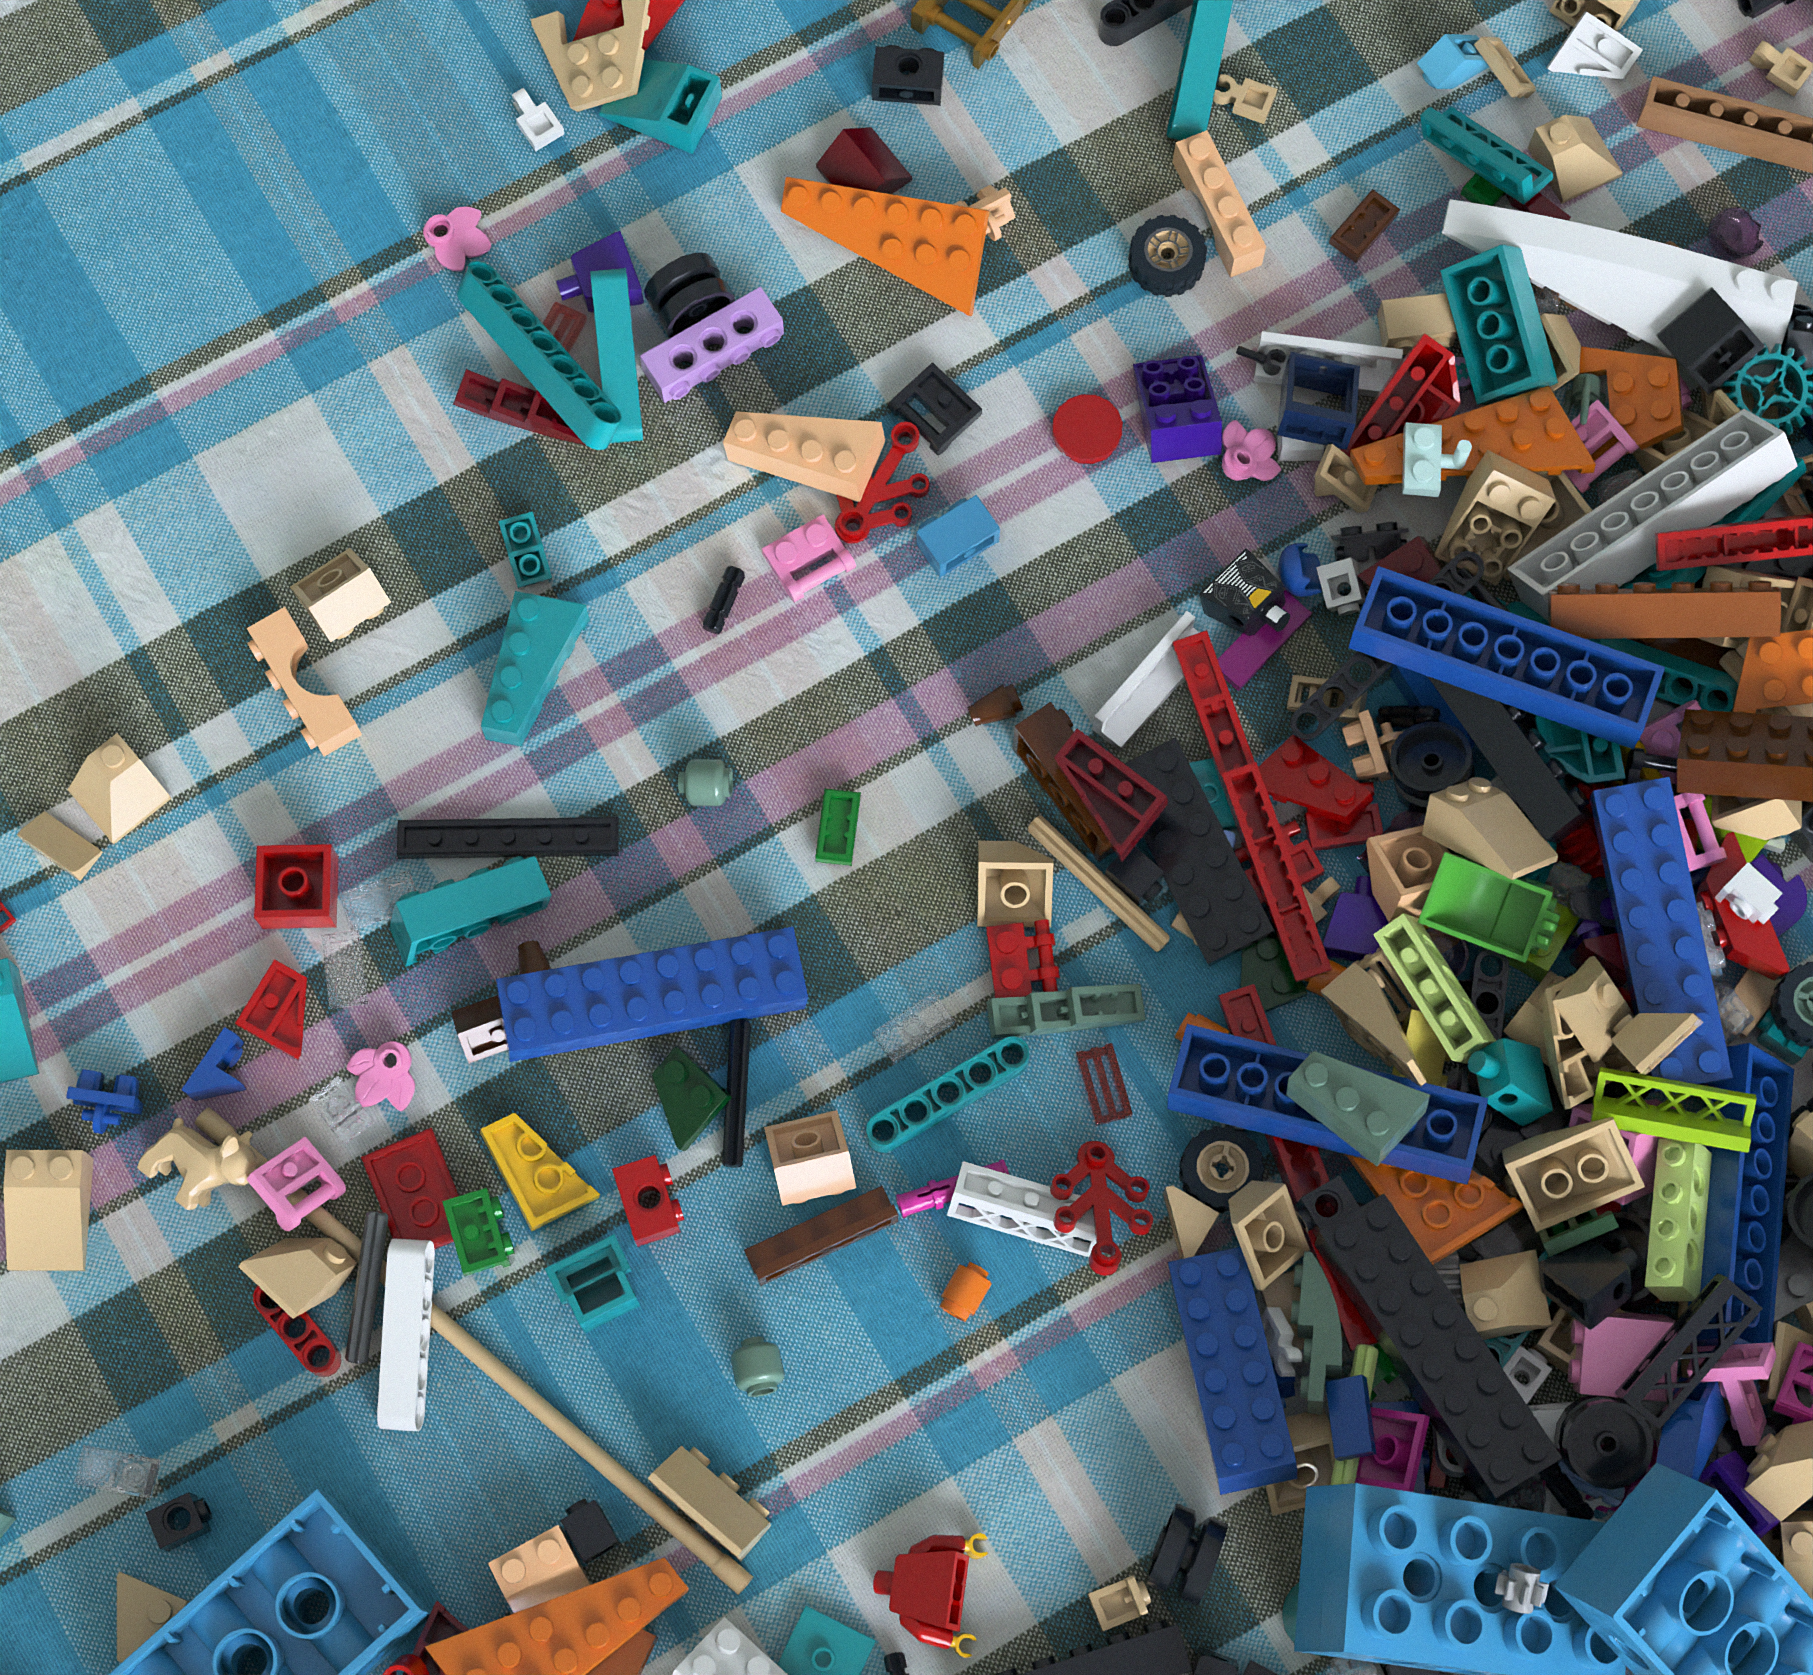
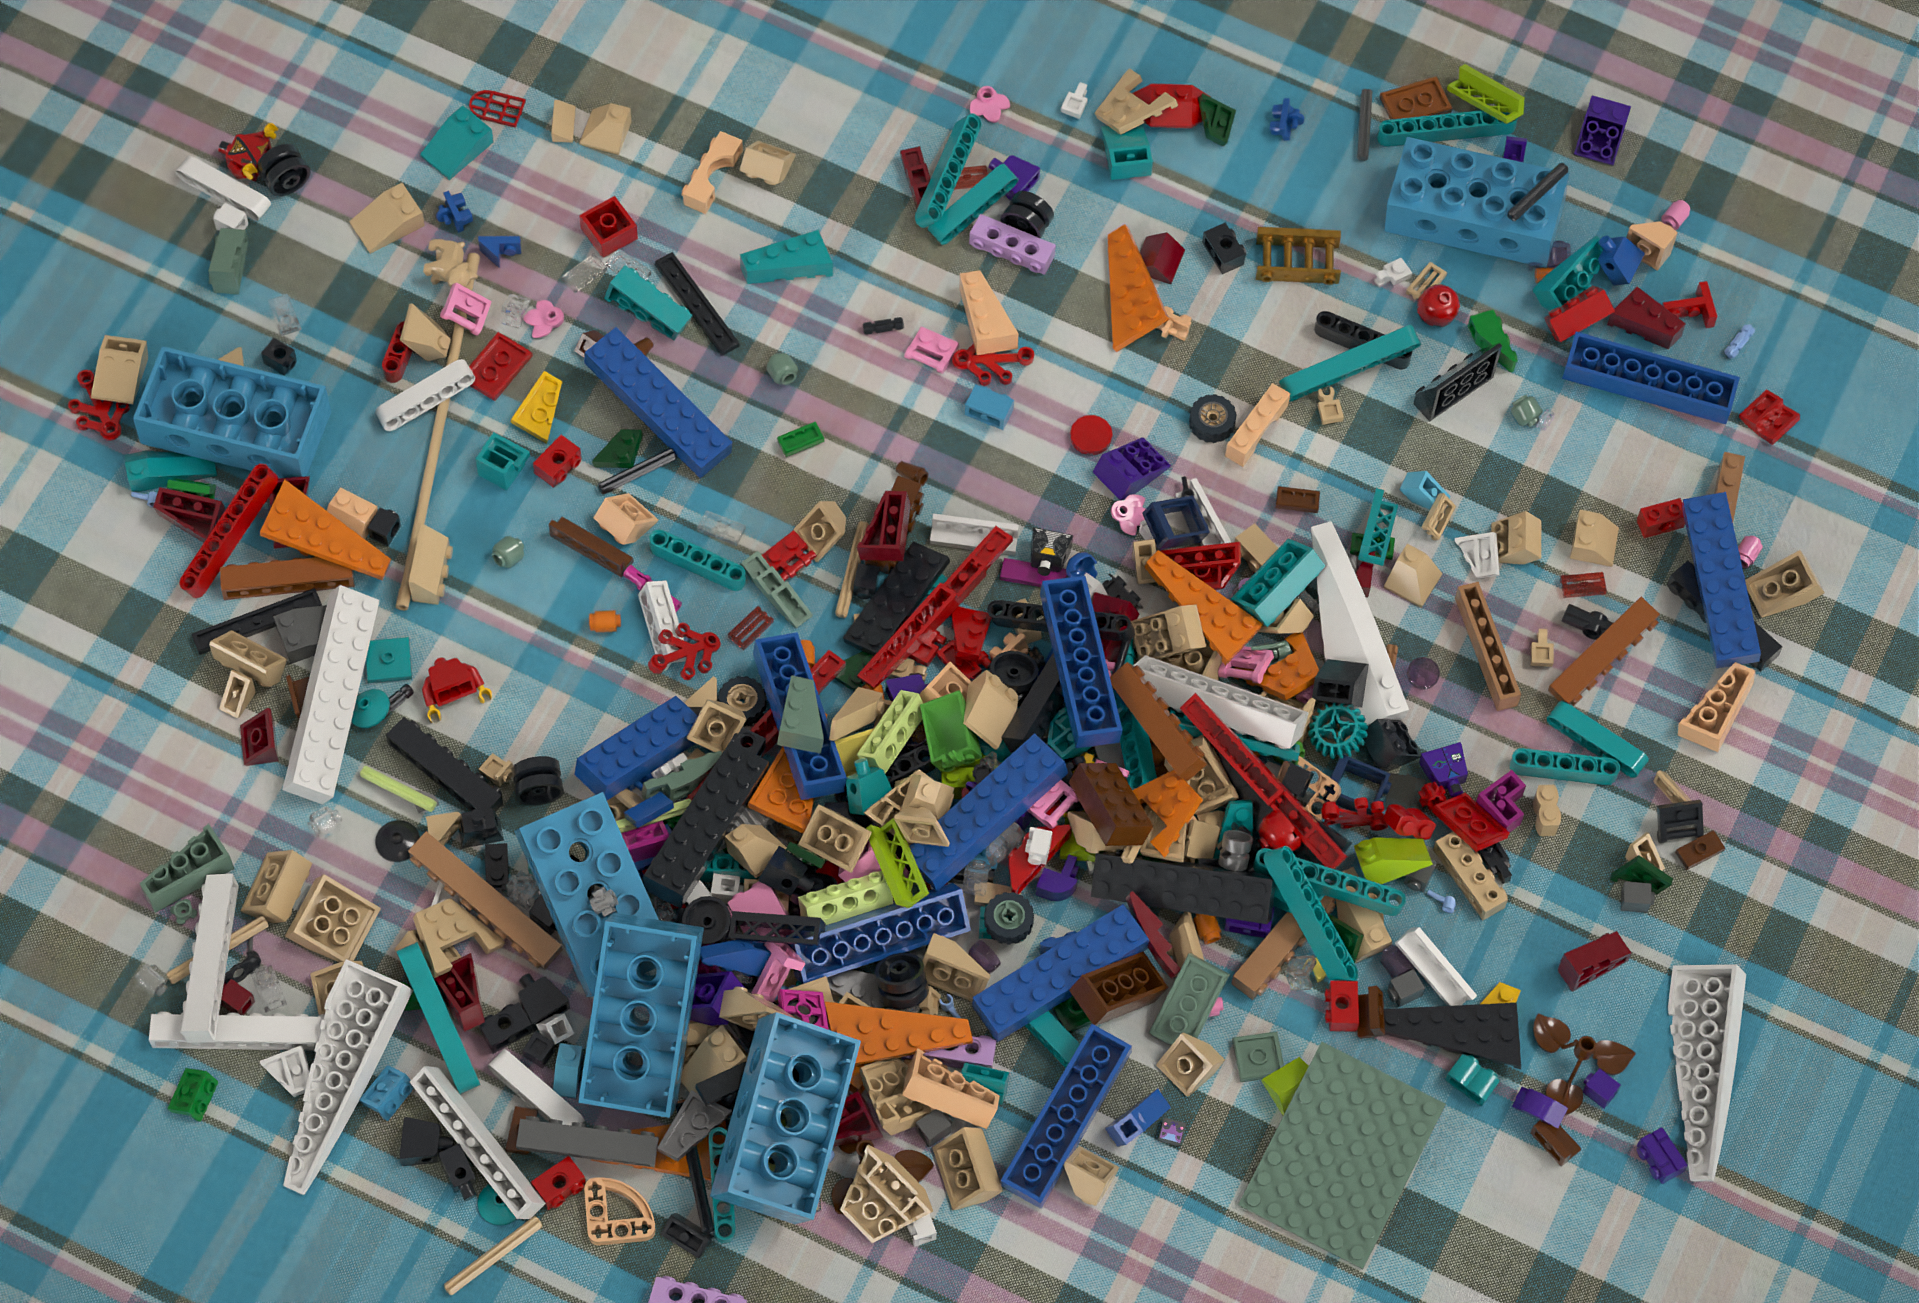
camera: 55 degrees right, 10 degrees down
(277, 1010) = (545, 256): red wing -> none
(366, 1287) = (421, 374): dark grey axle -> none
(477, 1231) = (495, 398): green bracket -> none
(525, 549) = (848, 227): teal slope -> none
(941, 399) = (1057, 364): black plate -> none
(1424, 459) = (1173, 580): light aqua plate -> none

